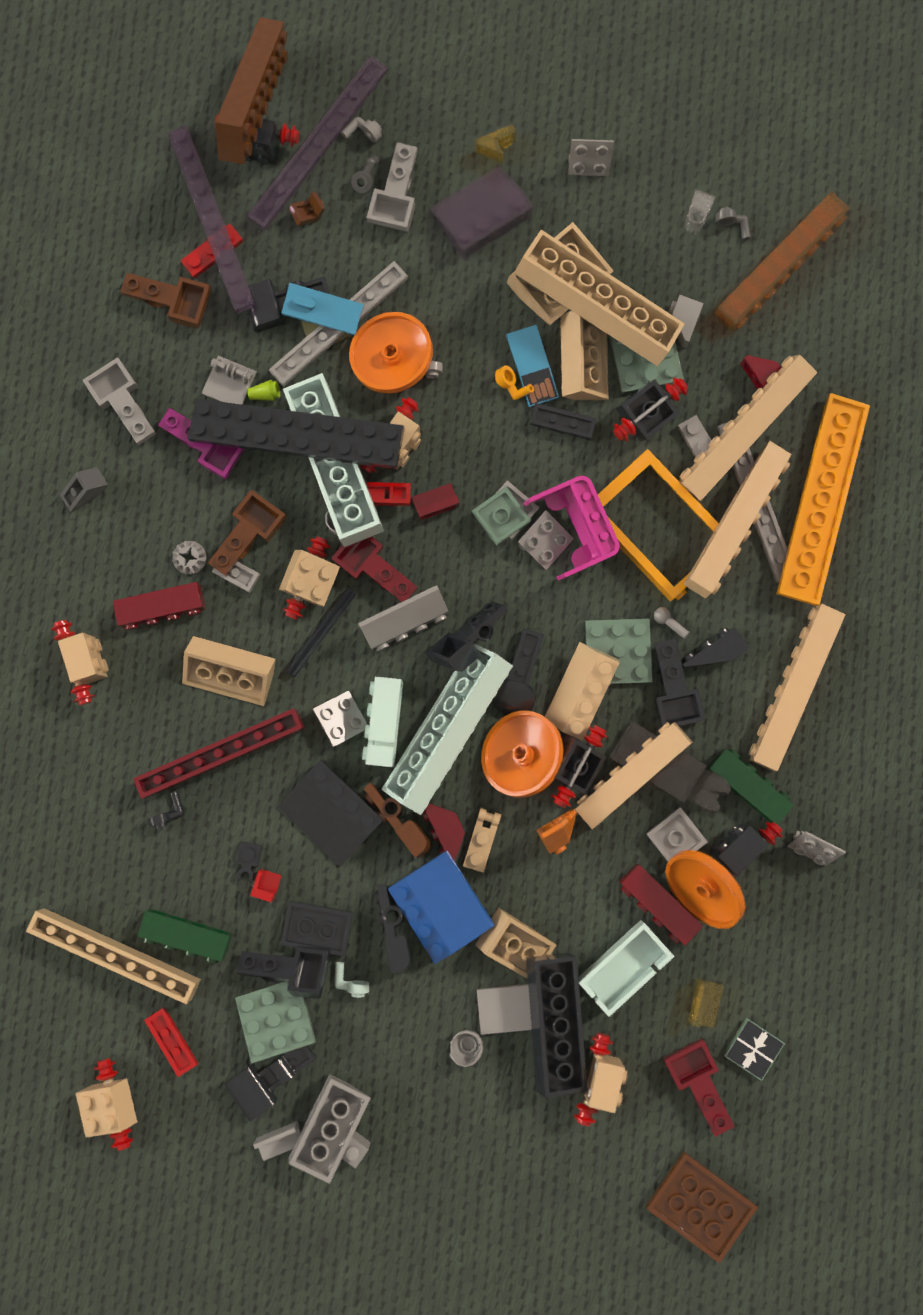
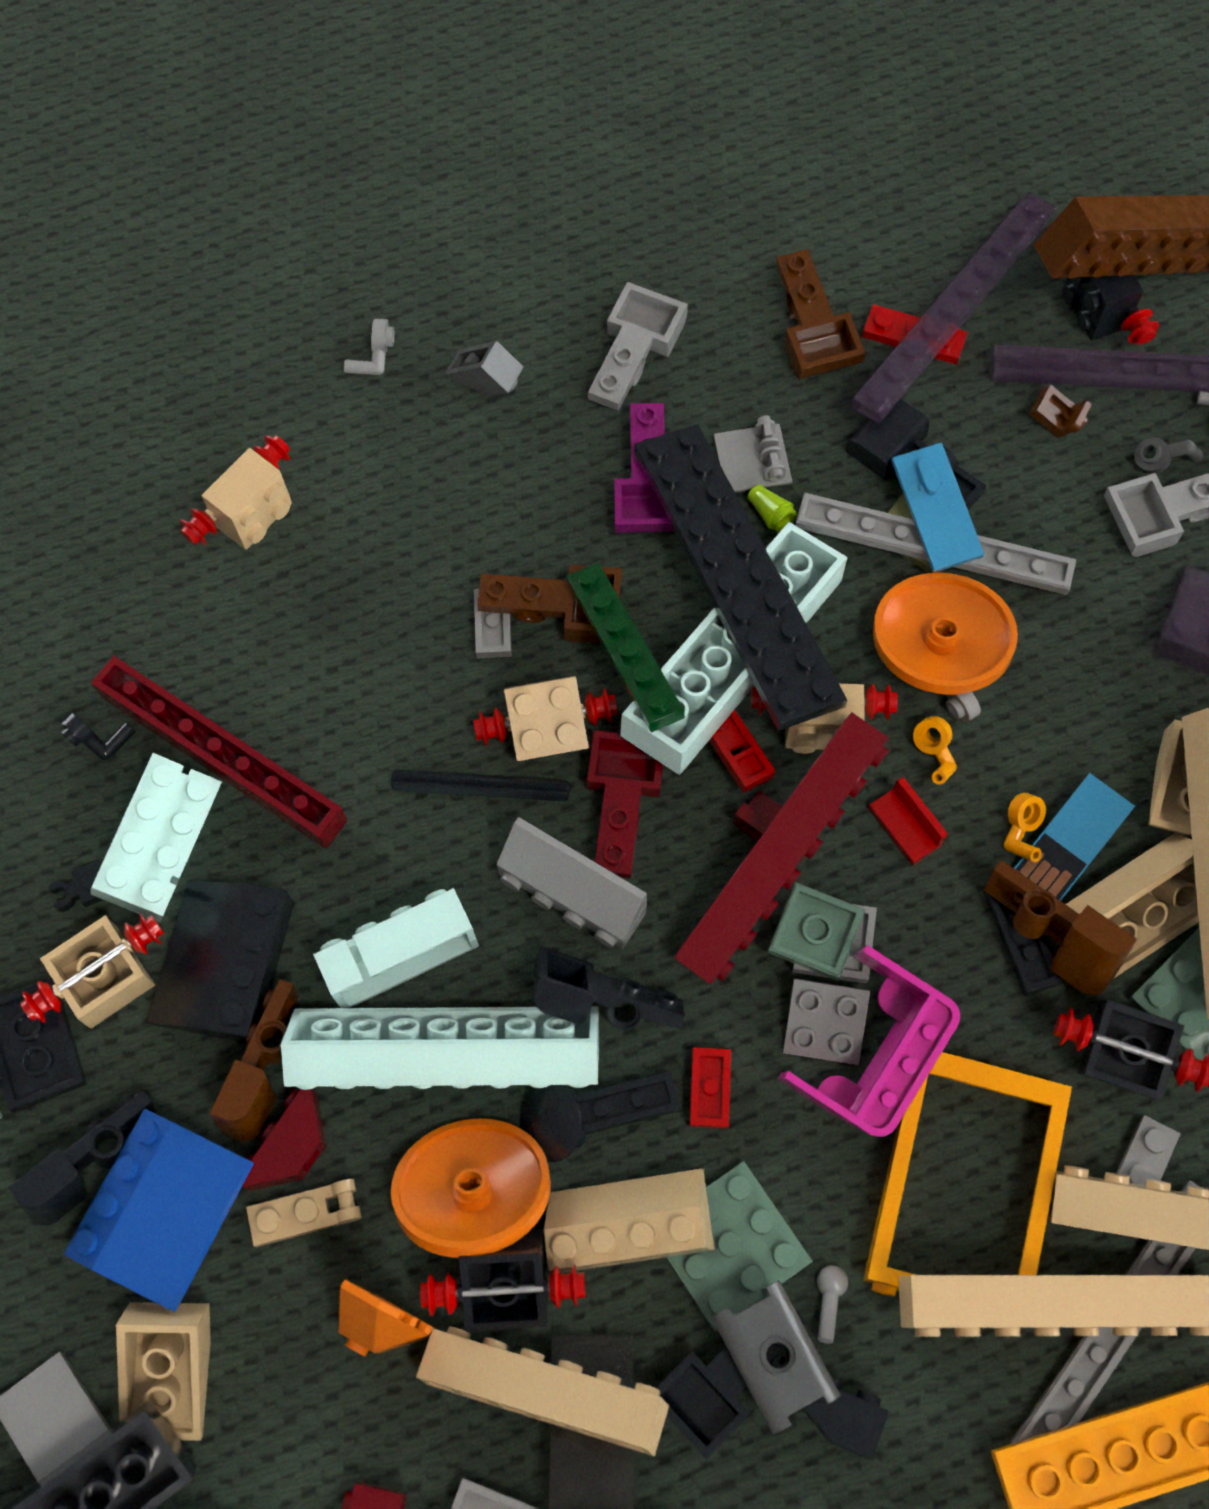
camera: 60 degrees right, 15 degrees down
(27, 531) = (381, 339): none -> light grey plate
(159, 605) = (384, 553): dark red brick -> none
(192, 566) = (467, 563): light grey gear -> none
(227, 670) = (346, 693): tan slope -> none
(248, 809) = (155, 838): none -> light aqua piece
(266, 885) = (55, 927): red panel -> none
(301, 515) = (625, 648): none -> dark green plate
(301, 877) = (95, 971): none -> tan brick
(340, 718) = (367, 885): light grey hinge -> none
(445, 396) = (937, 746): none -> light orange plate
(453, 505) = (781, 848): none -> dark red brick
(474, 436) = (908, 822): none -> red panel
(542, 614) = (710, 1088): none -> red plate
(590, 394) = (1089, 942): none -> reddish brown plate
(699, 658) = (803, 1373): none -> dark grey piece

